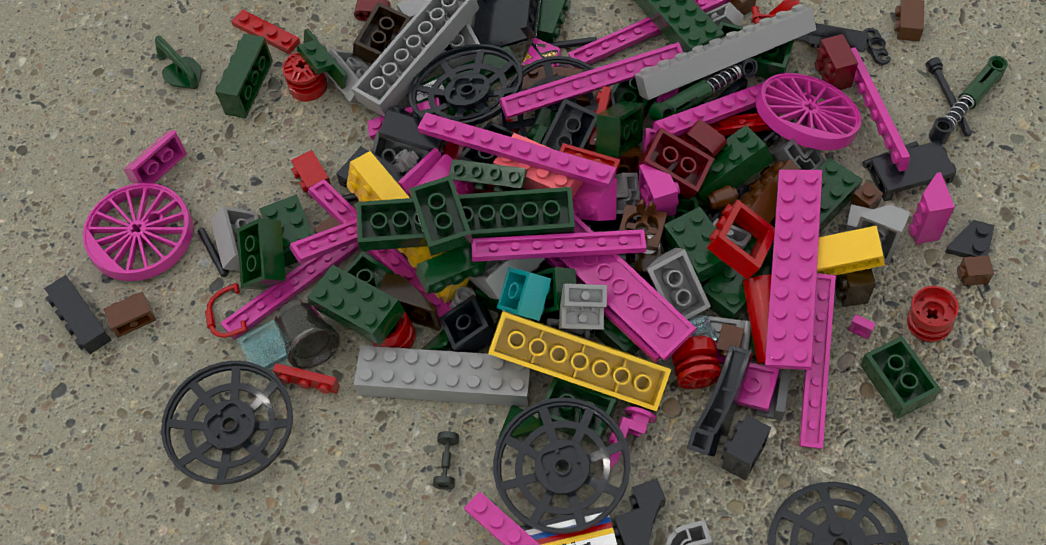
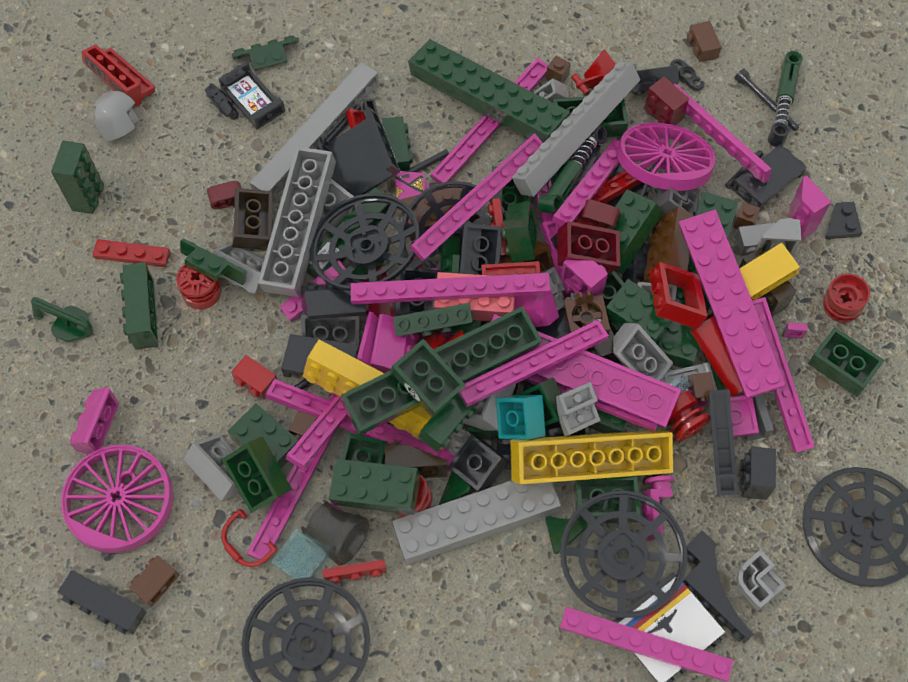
camera: 30 degrees left, 5 degrees up
(212, 252) = (199, 488): black bar -> none
(405, 160) = (343, 333): light grey gear -> none
(448, 439) = (509, 571): pearl dark grey wheel -> none
(722, 197) = (635, 262): reddish brown brick -> none
(975, 270) = (858, 246): reddish brown brick -> none

